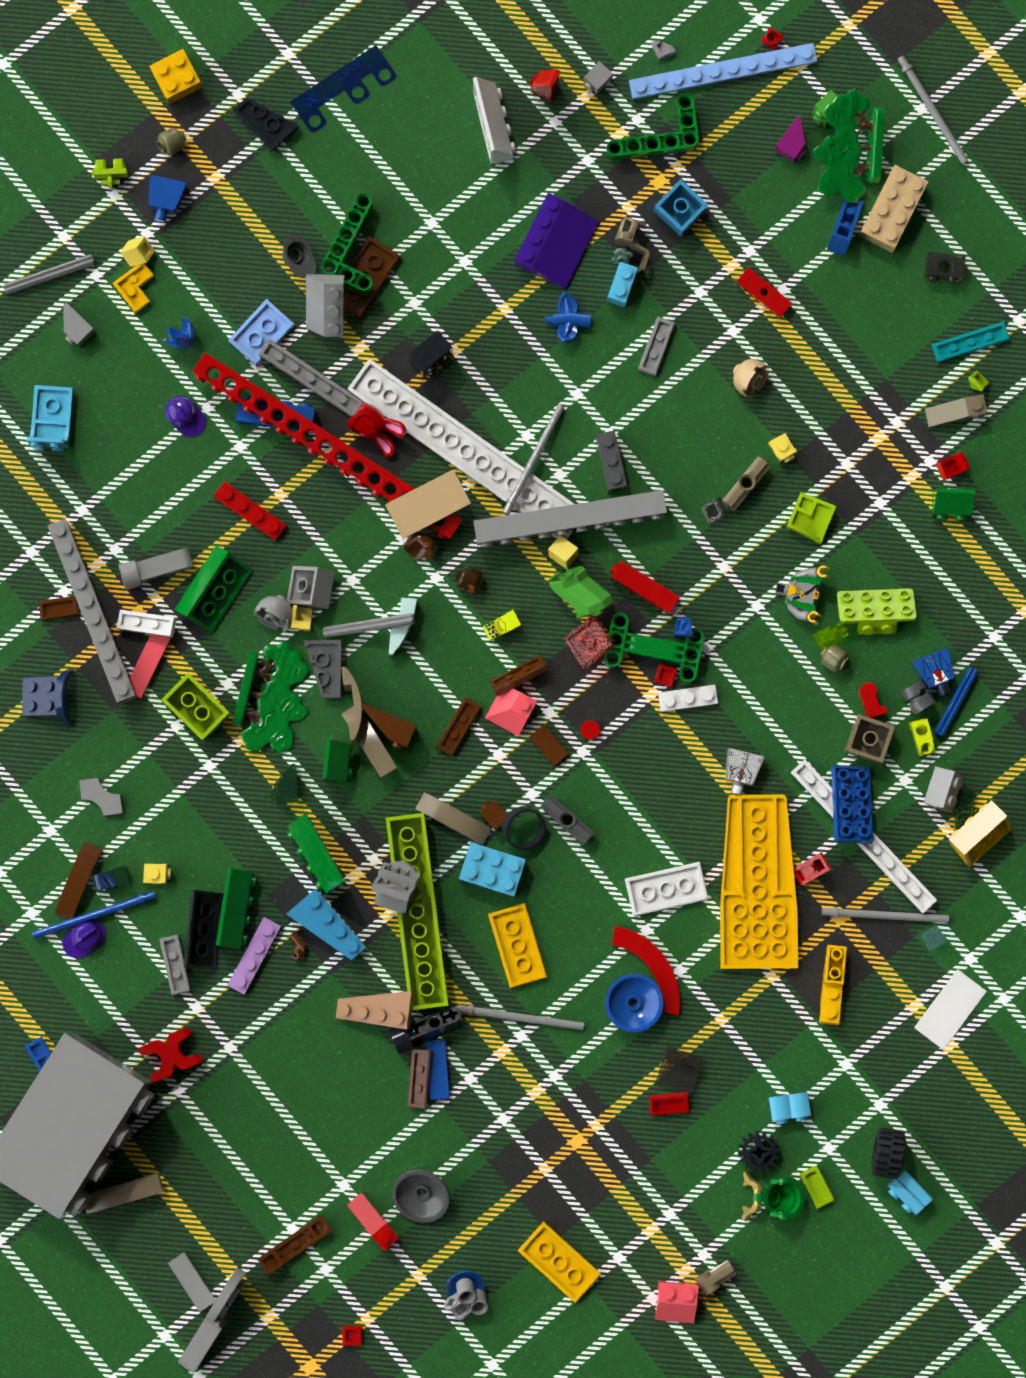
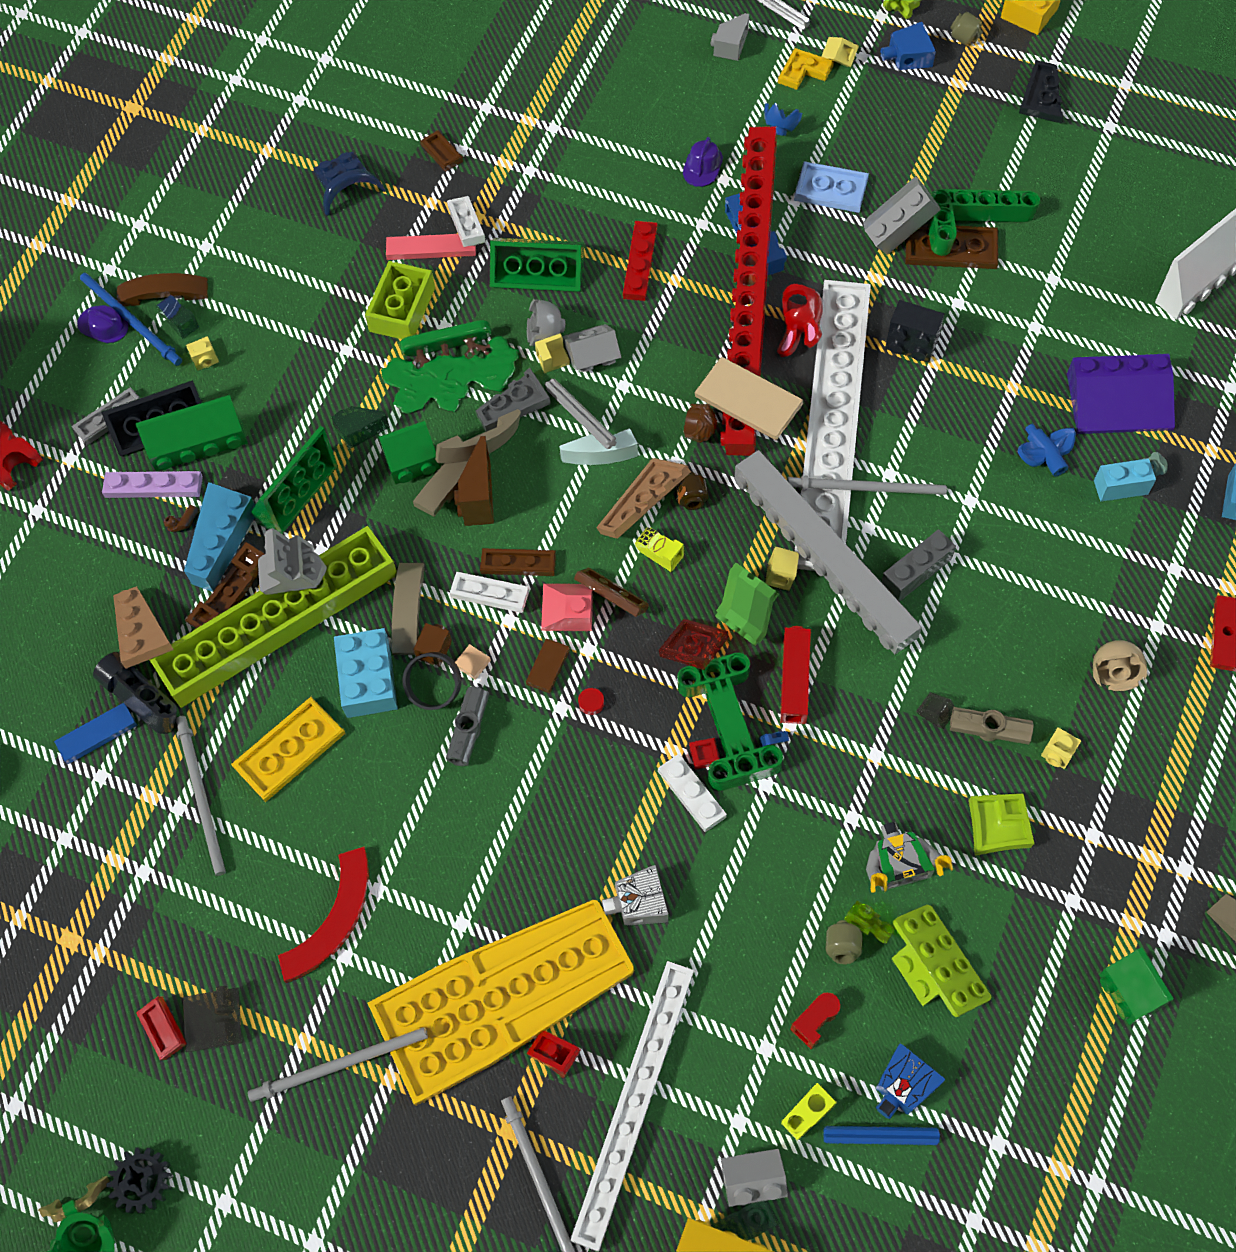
camera: 70 degrees right, 20 degrees down
(51, 418) = (626, 59): medium azure bracket -> none
(92, 611) = (450, 173): light grey brick -> none
(109, 803) = (264, 263): light grey tile -> none
(135, 573) = (527, 202): light grey beam -> none
(298, 256) = (933, 170): dark grey piece -> none
(310, 378) = (814, 240): light grey tile -> none
(343, 79) = (1136, 138): clear blue piece -> none
(375, 936) = (231, 588): none -> reddish brown slope
(420, 1078) = (75, 717): reddish brown tile -> none
(456, 615) = (645, 491): none -> medium nougat wing
(473, 758) = (489, 592): none -> white plate
(519, 794) = (472, 662): none -> light nougat tile
(626, 239) = (1179, 456): dark tan piece -> none
(648, 1002) = (264, 899): blue dish -> none
(656, 346) = (1081, 552): light grey tile -> none
(666, 889) = (441, 887): white tile -> none
(750, 1004) = (269, 1089): none -> light grey bar
(789, 1106) = (219, 1192): medium azure brick -> none
(832, 984) = (412, 1164): yellow slope -> none
(852, 804) = (666, 1062): blue tile -> none
(869, 739) = (765, 1039): dark tan brick -> none
(918, 697) = (857, 1076): dark grey wheel -> none
(952, 466) = (1180, 964): red bracket -> none

